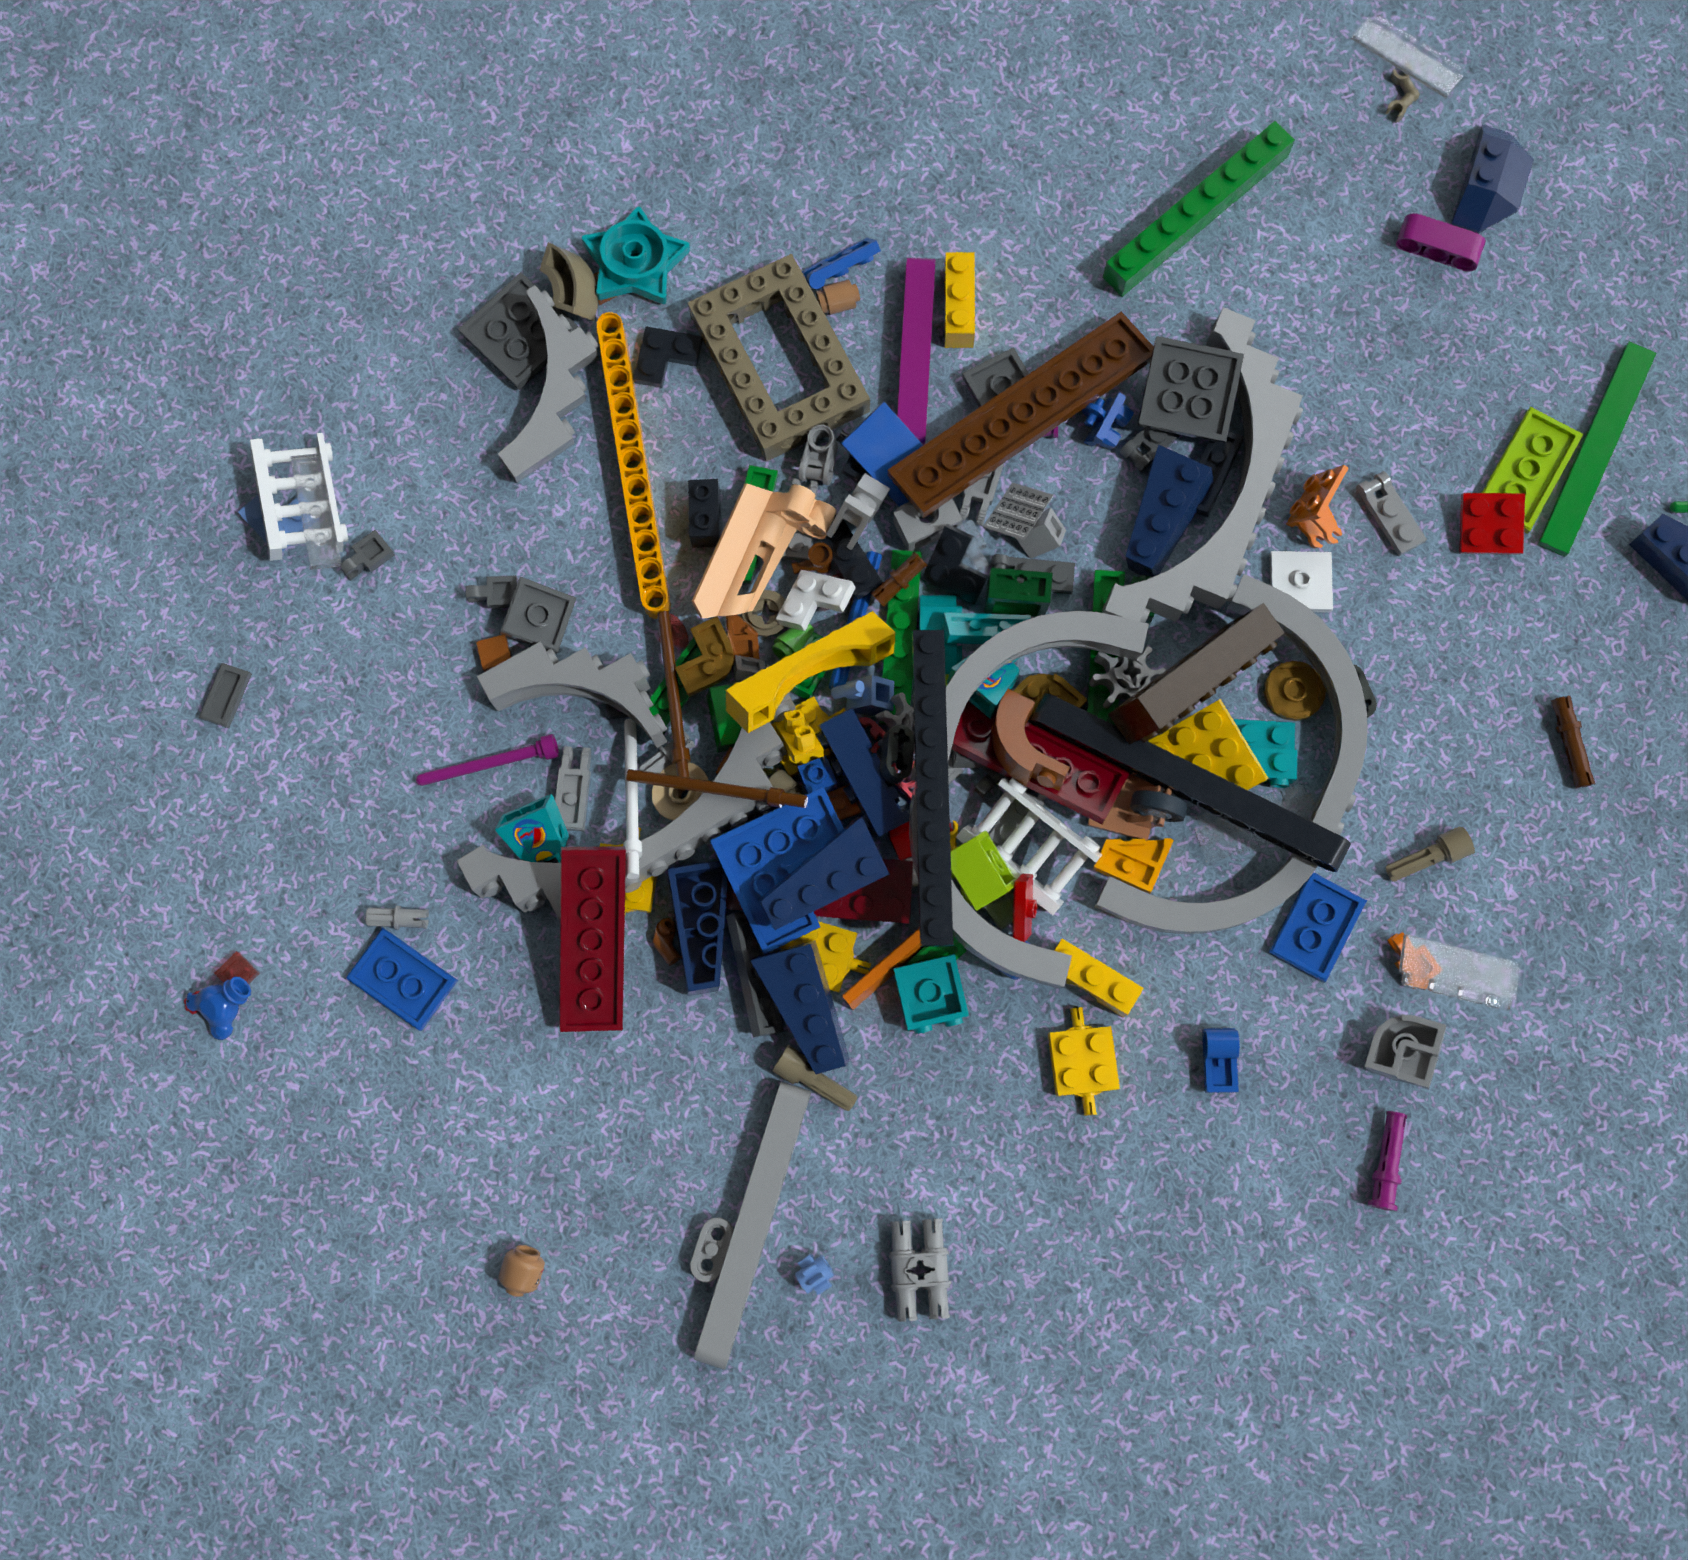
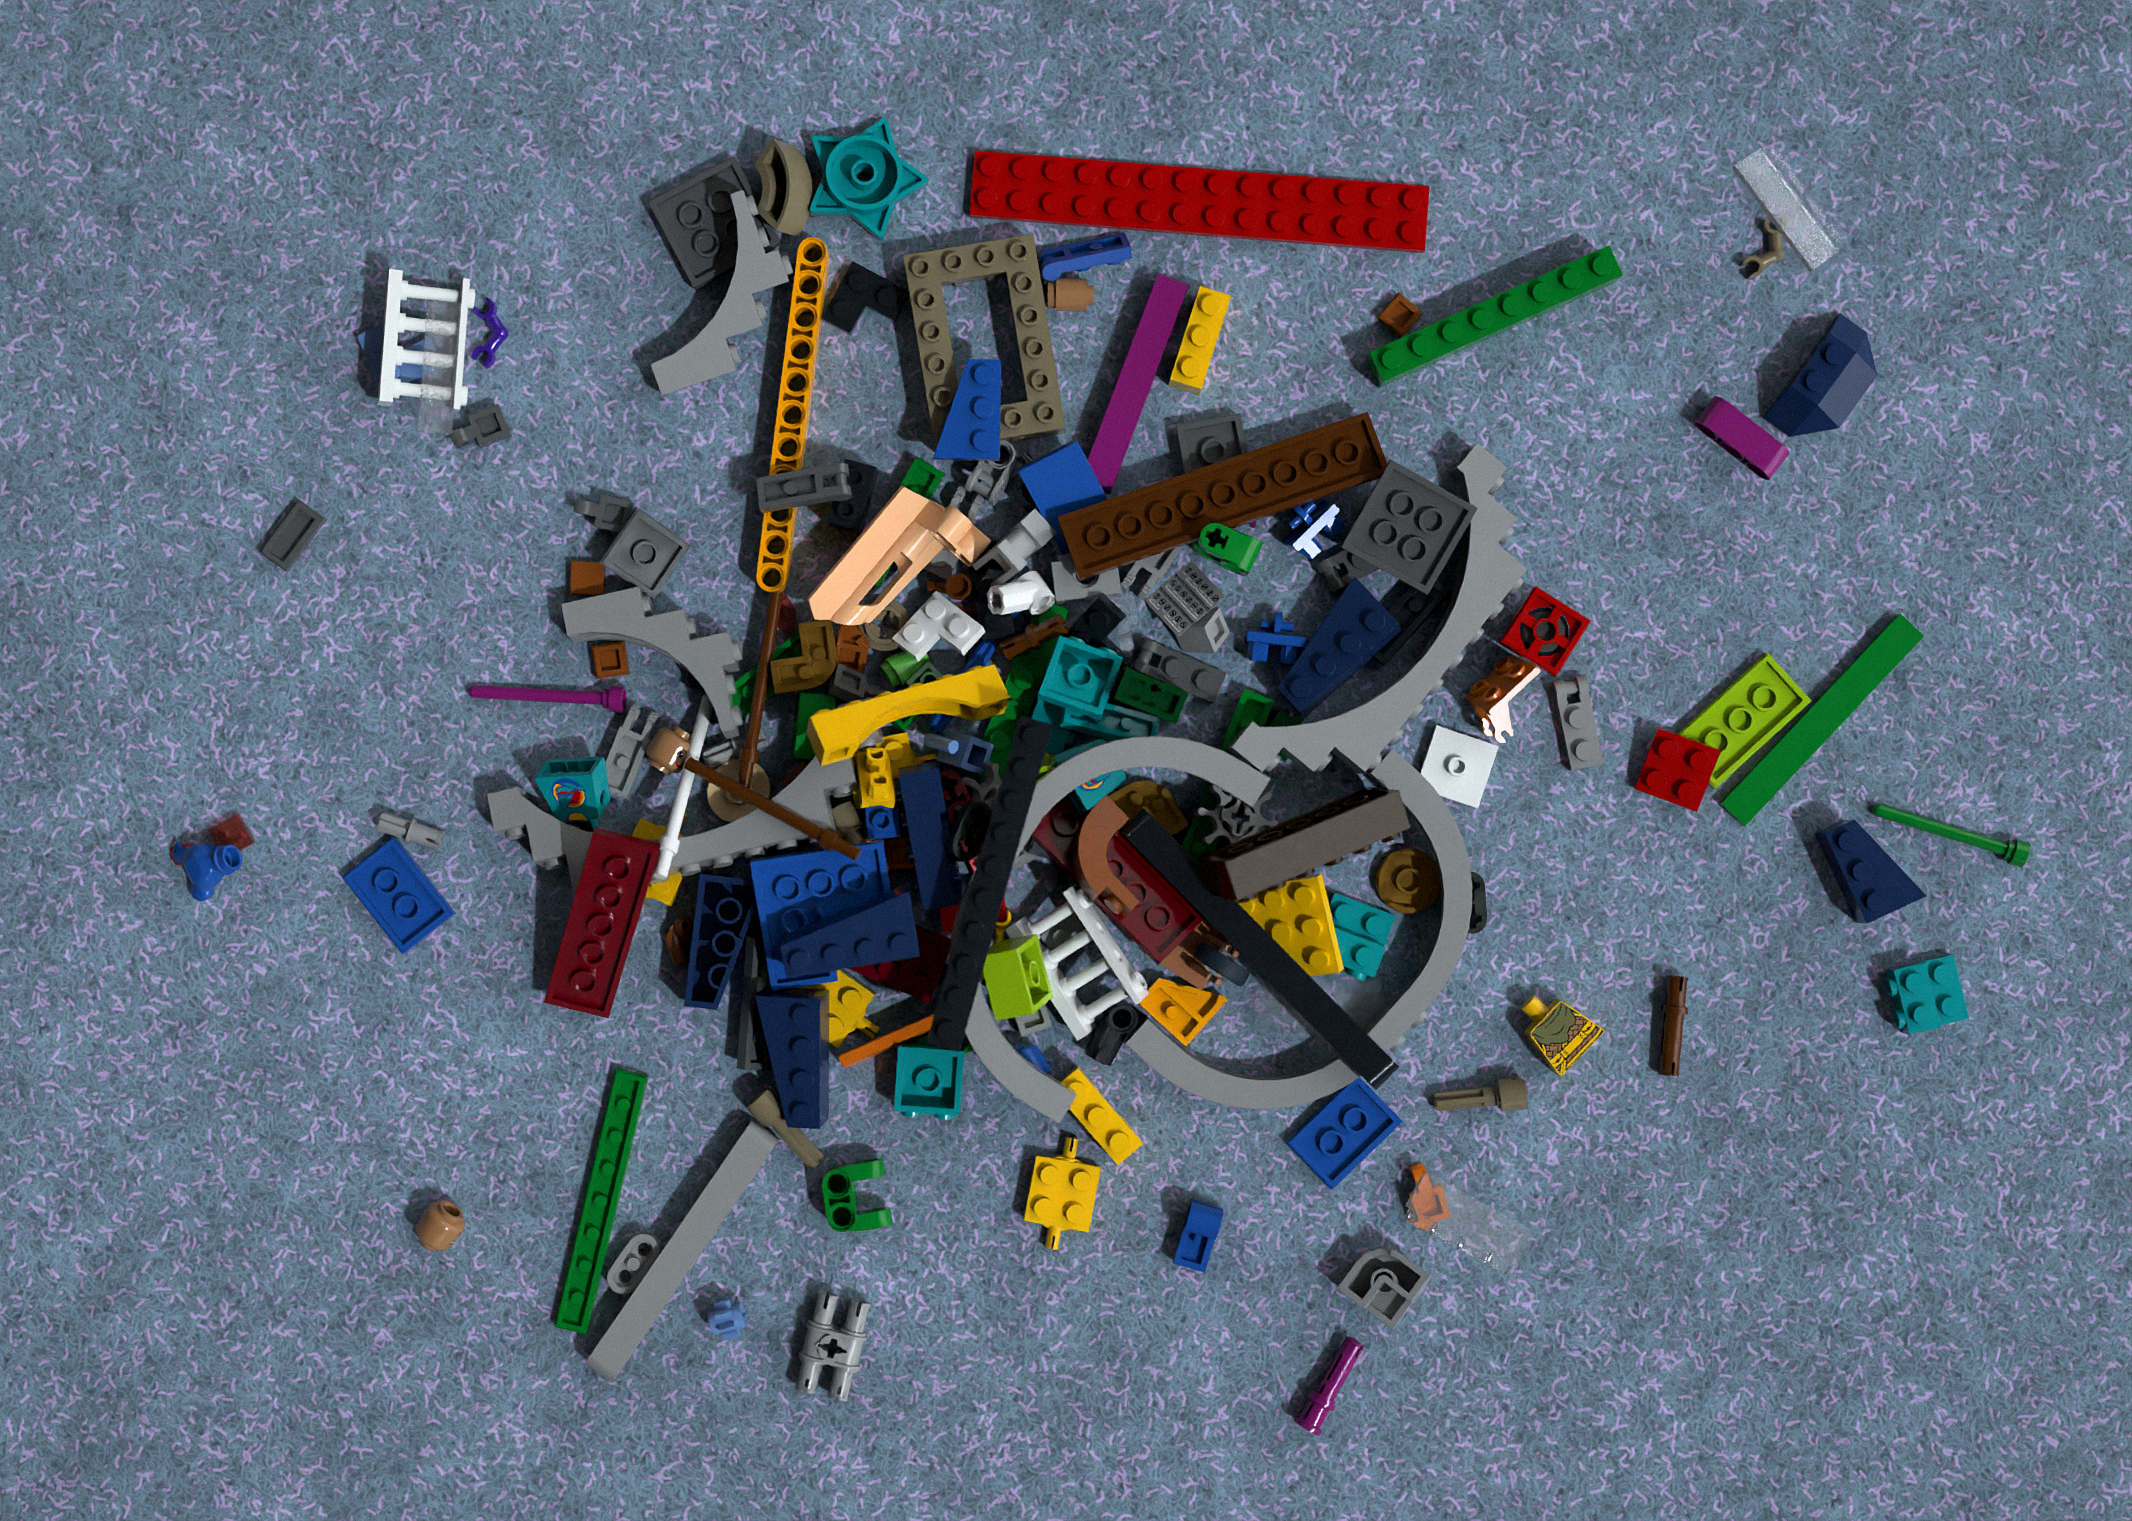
camera: 10 degrees right, 10 degrees up
(361, 475) = (499, 334): none -> dark purple arm
(534, 716) = (610, 660): none -> dark orange tile
(608, 774) = (668, 749): none -> medium nougat head
(660, 511) = (803, 487): none -> dark grey plate
(665, 1203) = (601, 1201): none -> green tile
(790, 410) = (975, 415): none -> blue wing
(879, 545) = (1026, 593): none -> white piece
(890, 1126) = (847, 1197): none -> green piece
(921, 195) = (1199, 201): none -> red plate
(951, 594) = (1080, 677): none -> teal plate
(1024, 907) = (1049, 1025): red plate -> none
(1047, 461) = (1234, 550): none -> green piece
(1080, 904) = (1111, 1034): none -> black piece
(1107, 518) = (1259, 641): none -> blue hips
(1118, 233) = (1399, 315): none -> dark orange tile
(1336, 442) = (1544, 631): none -> red piece
(1477, 778) = (1559, 1032): none -> torso

